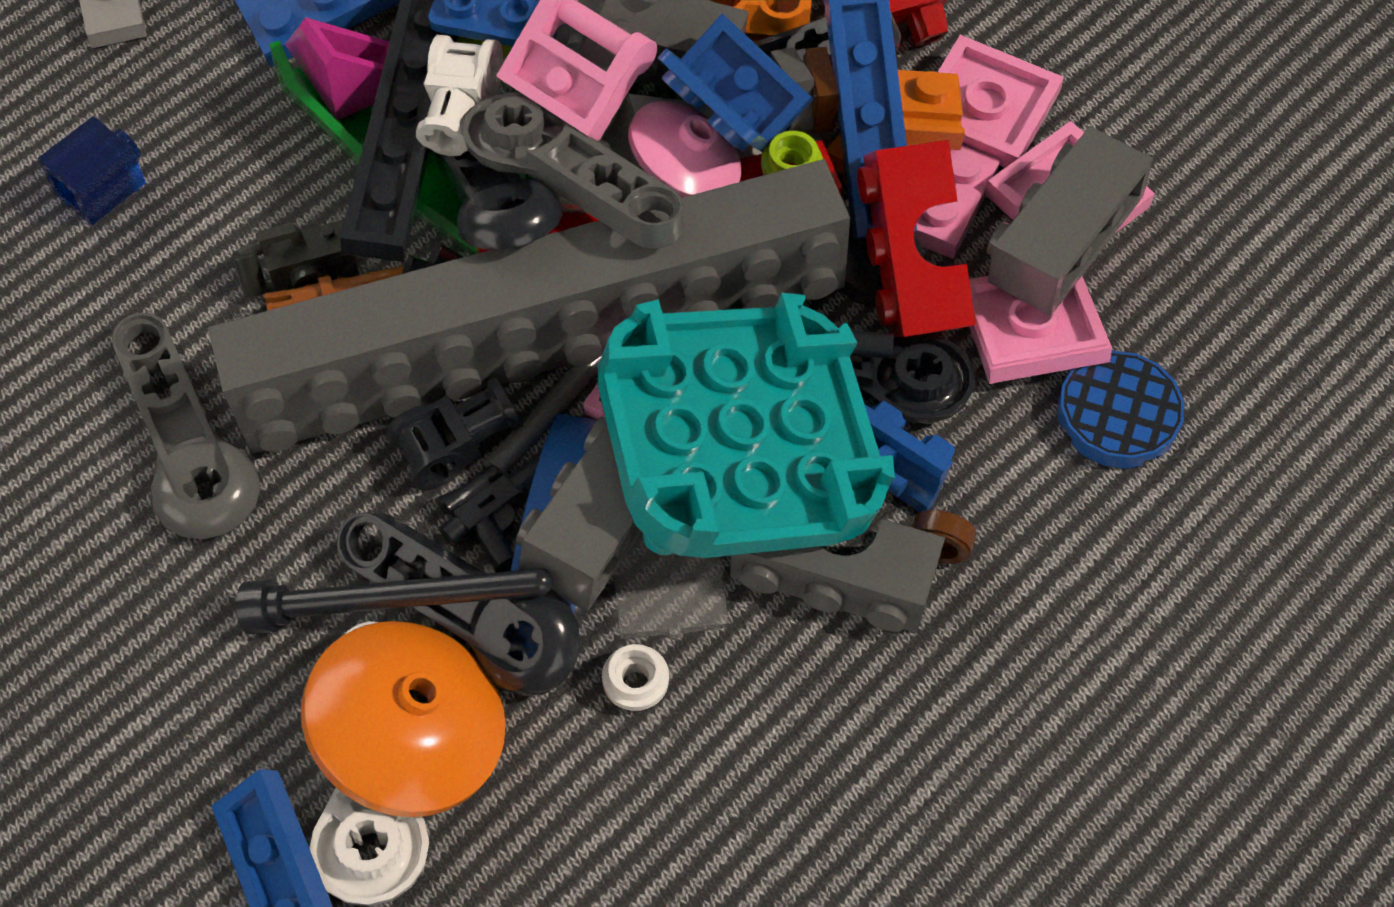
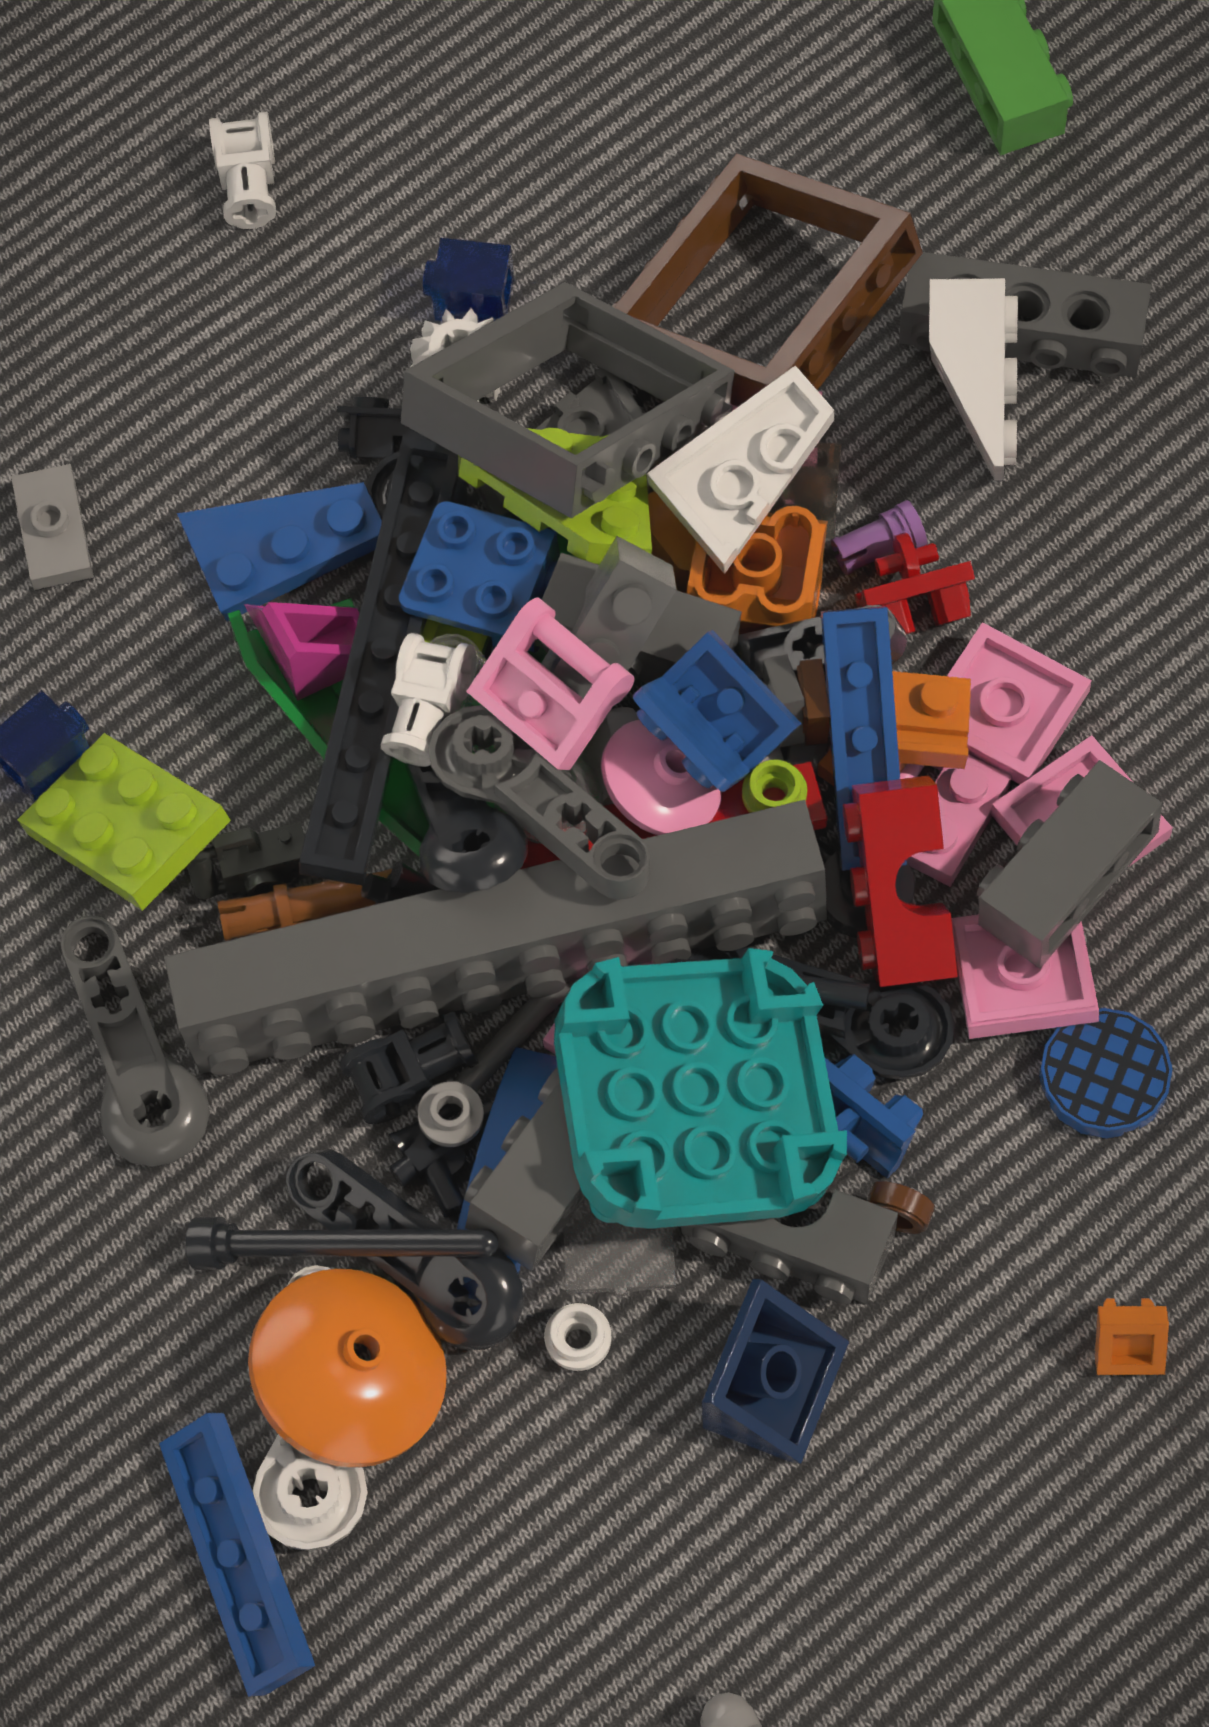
camera: 10 degrees right, 5 degrees up
(173, 226) = (124, 821): none -> lime plate
(498, 487) = (450, 1132): none -> light grey plate
(834, 702) = (773, 1375): none -> dark blue slope
(1183, 647) = (1131, 1339): none -> orange tile

